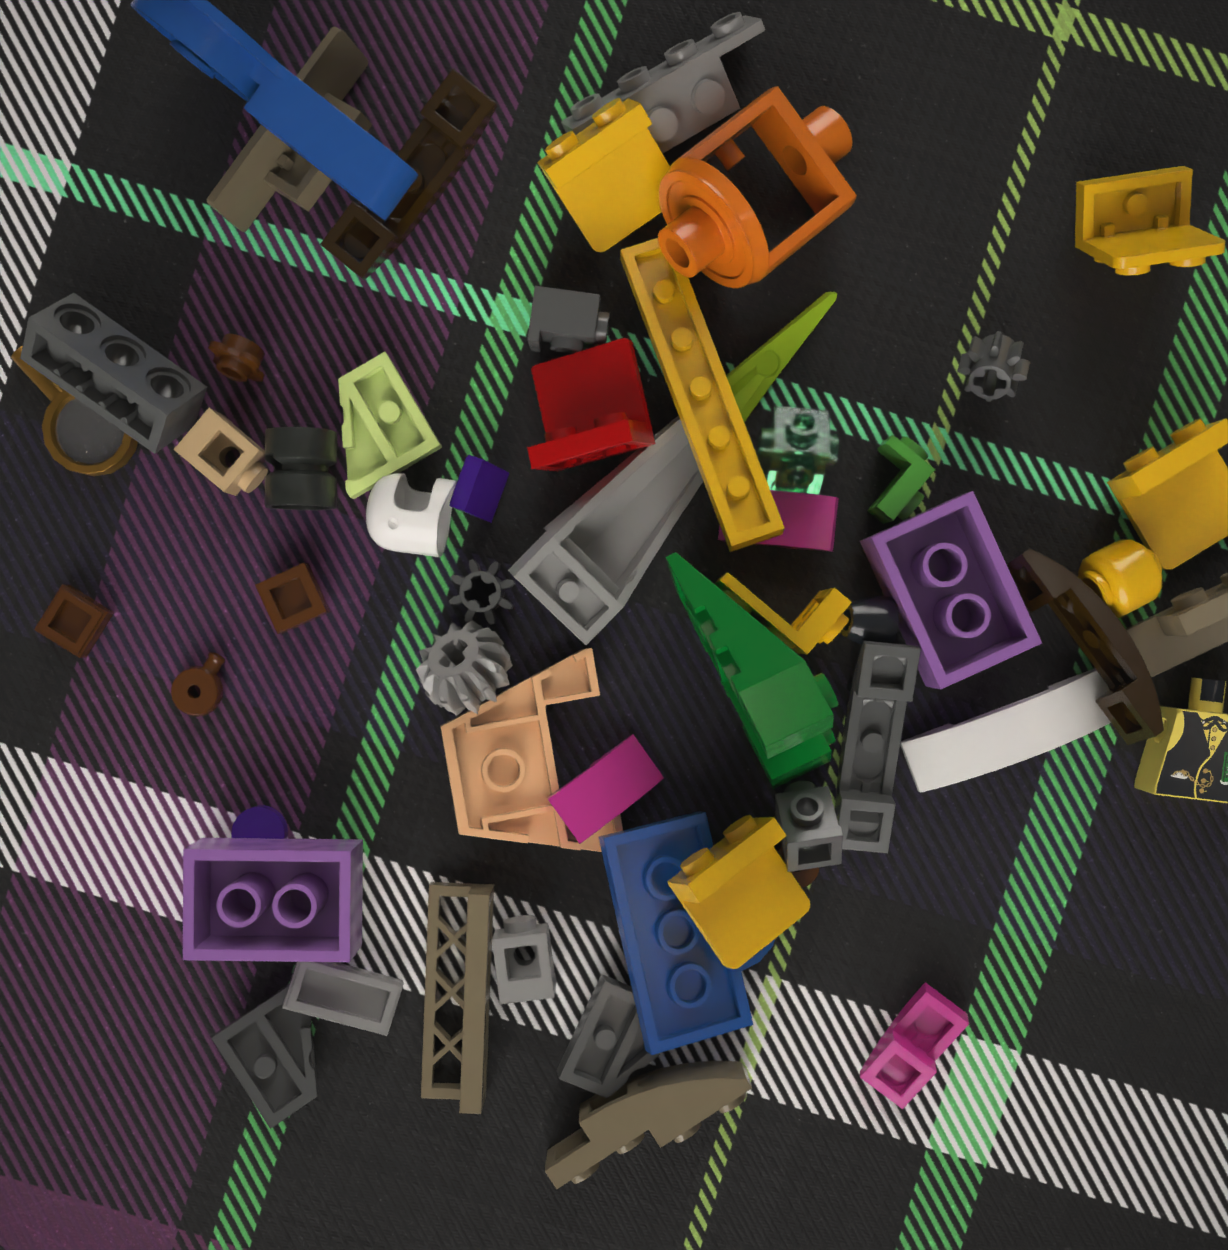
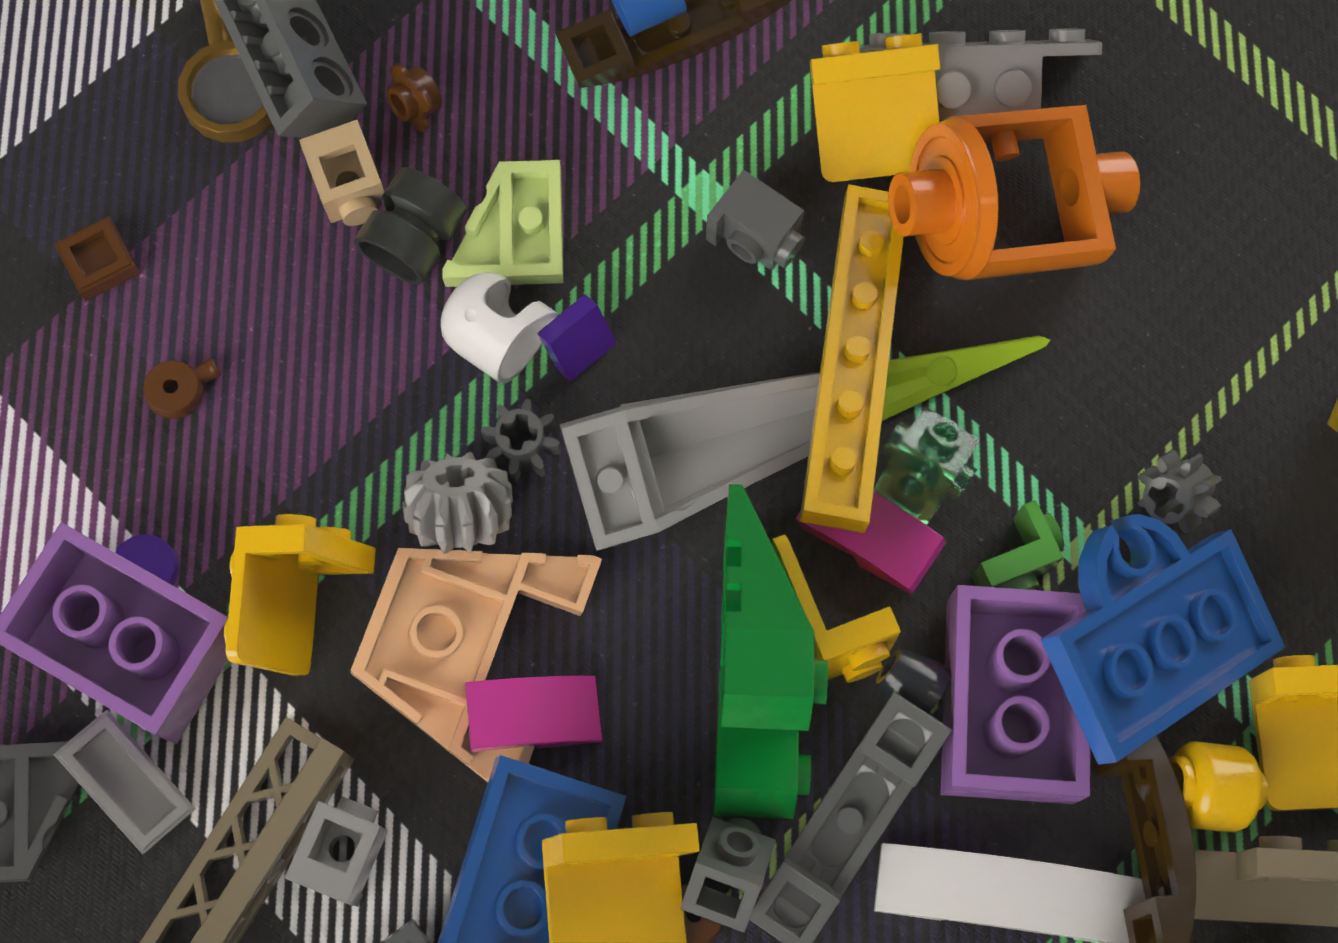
camera: 30 degrees right, 15 degrees down
(292, 598) = (326, 347): reddish brown plate -> none
(372, 808) = (277, 589): none -> yellow bracket
(590, 407) = (733, 317): red bracket -> none
(1033, 493) = (1156, 632): none -> blue plate

